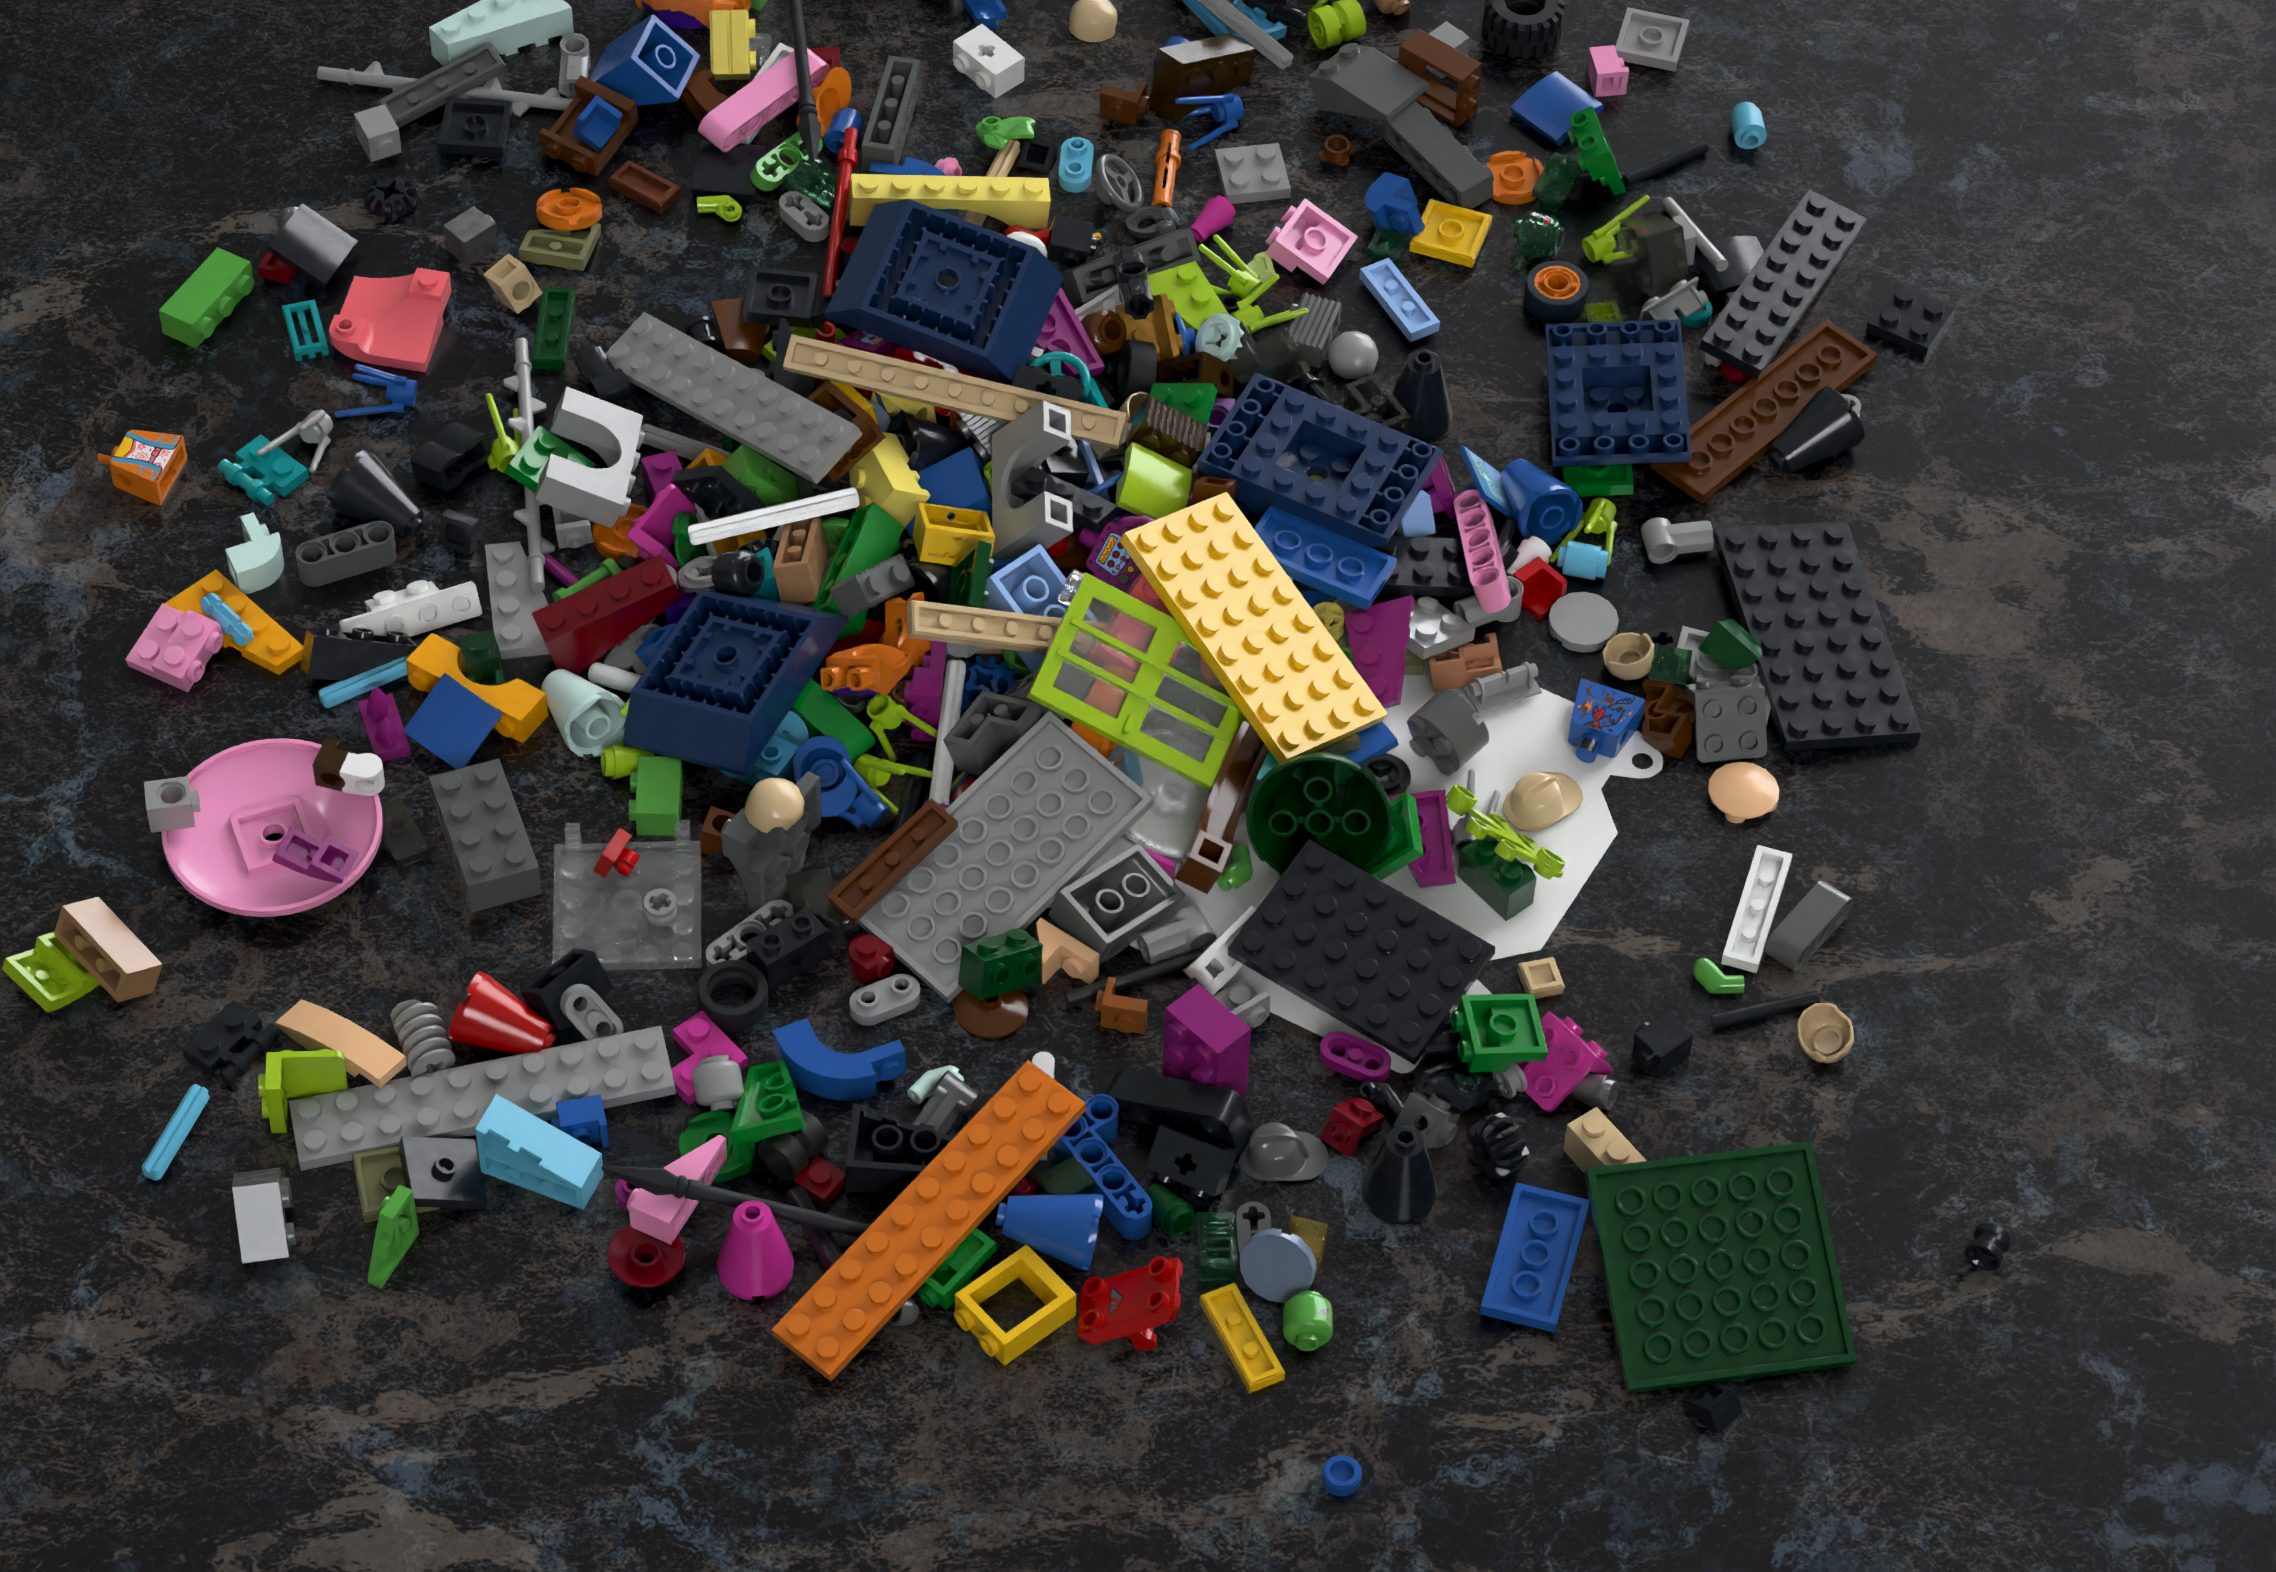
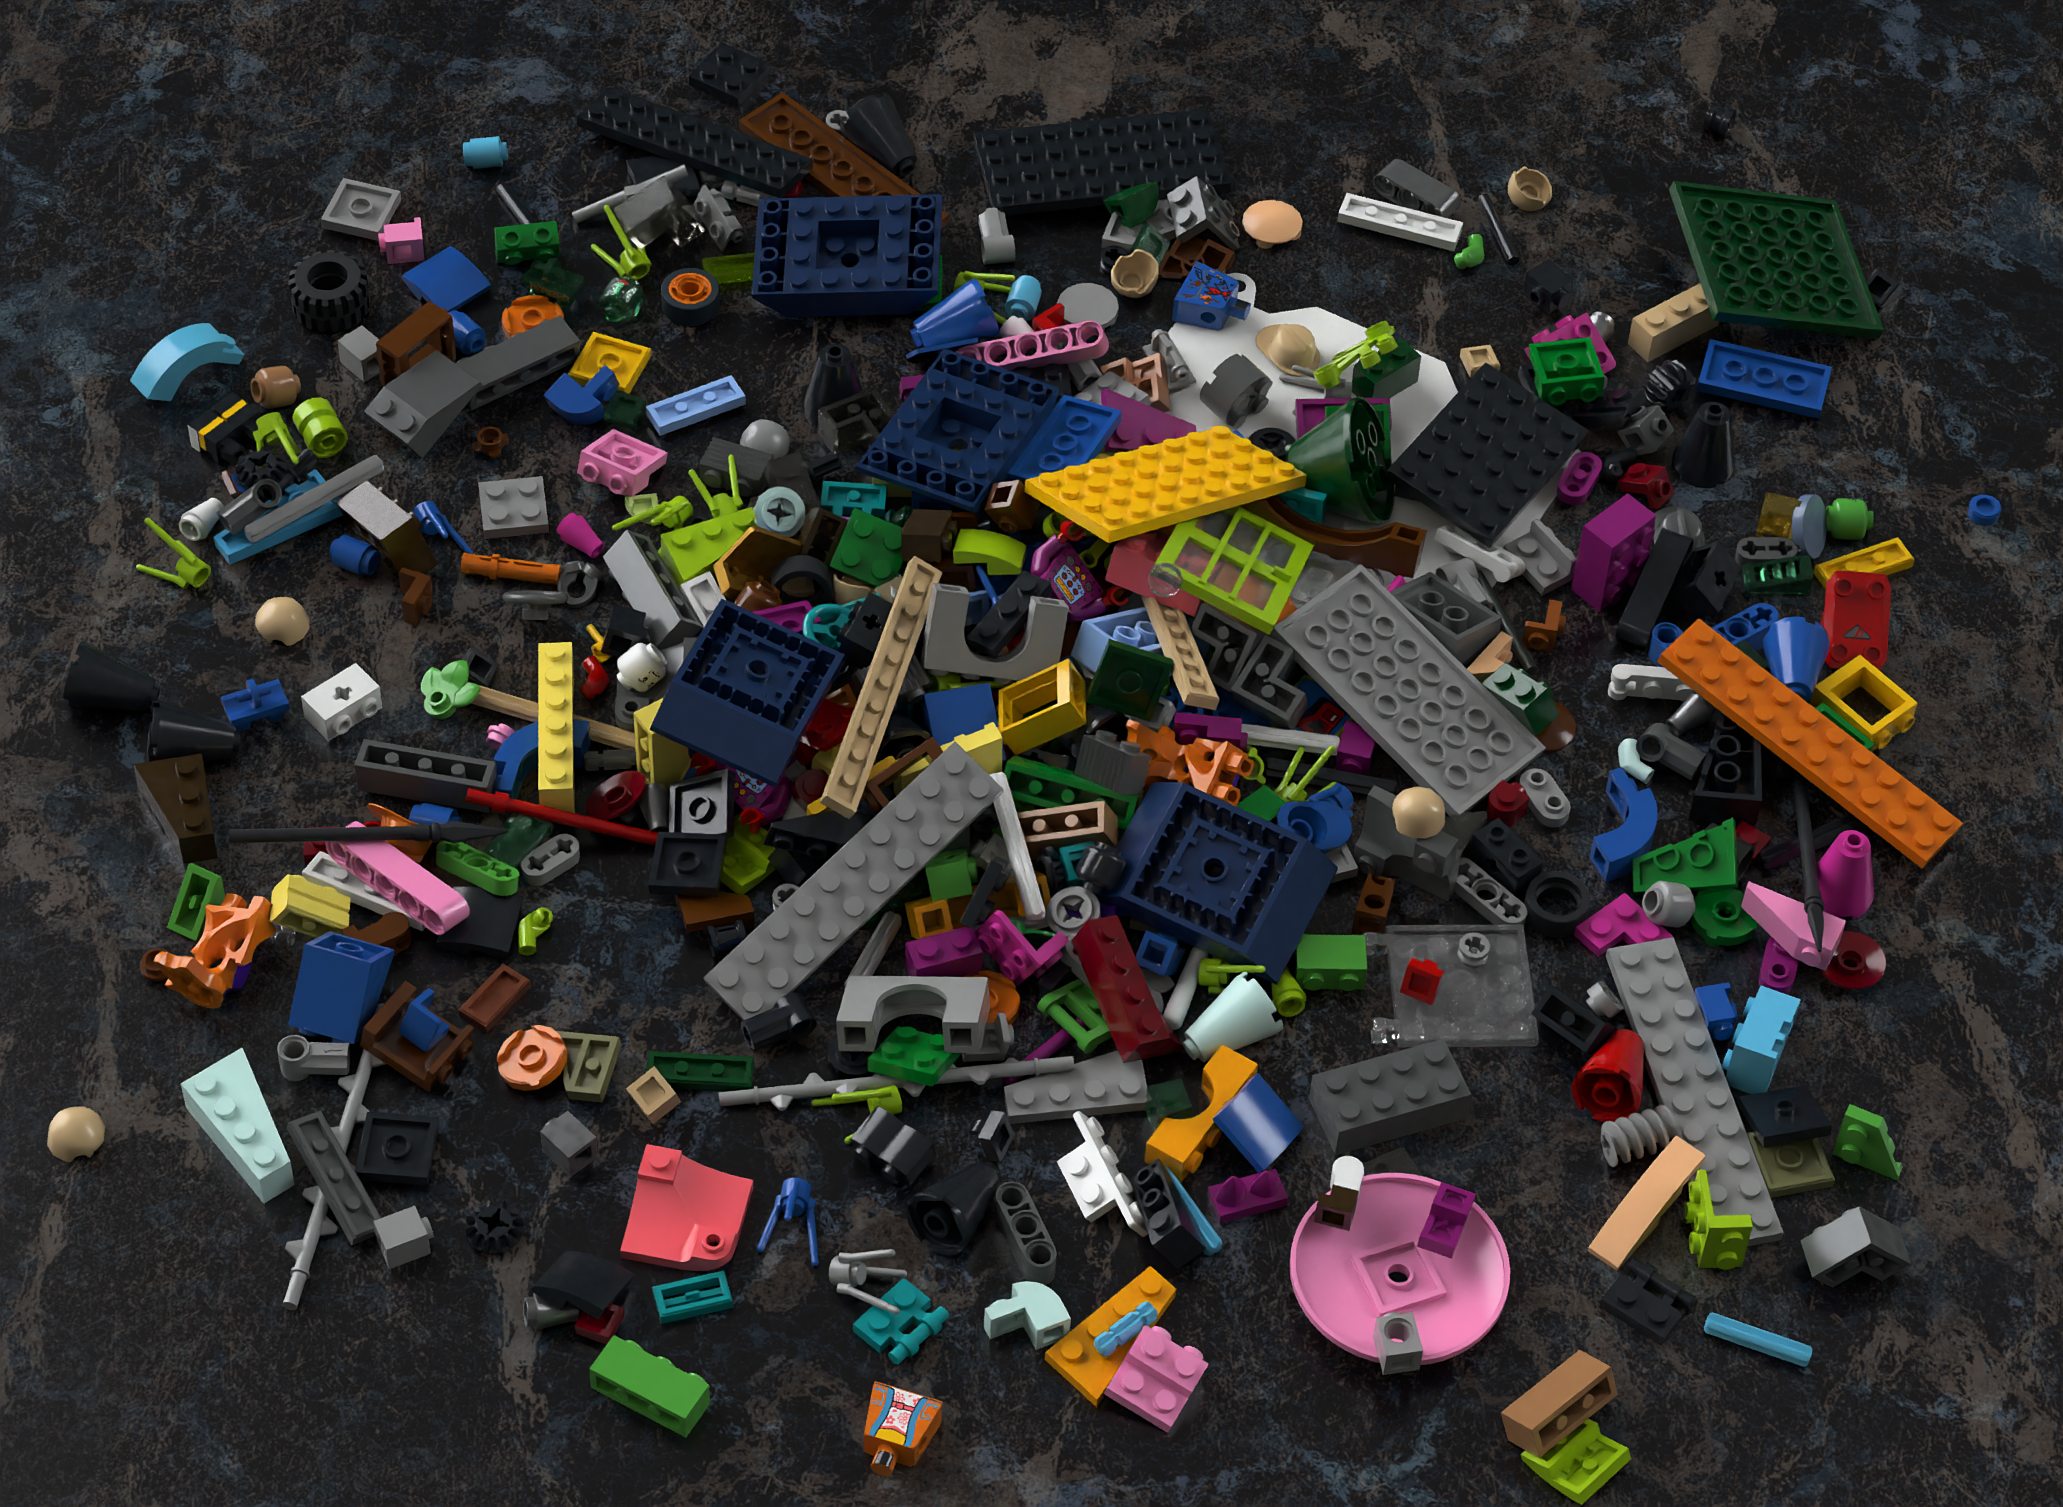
camera: 90 degrees left, 0 degrees up
(892, 861) = (1428, 761): reddish brown plate -> none
(1076, 164) = (492, 640): medium azure plate -> none
(1133, 283) = (714, 564): black piece -> none
(1170, 1211) = (1750, 596): dark green cone -> none
(1482, 120) = (467, 334): none -> blue brick

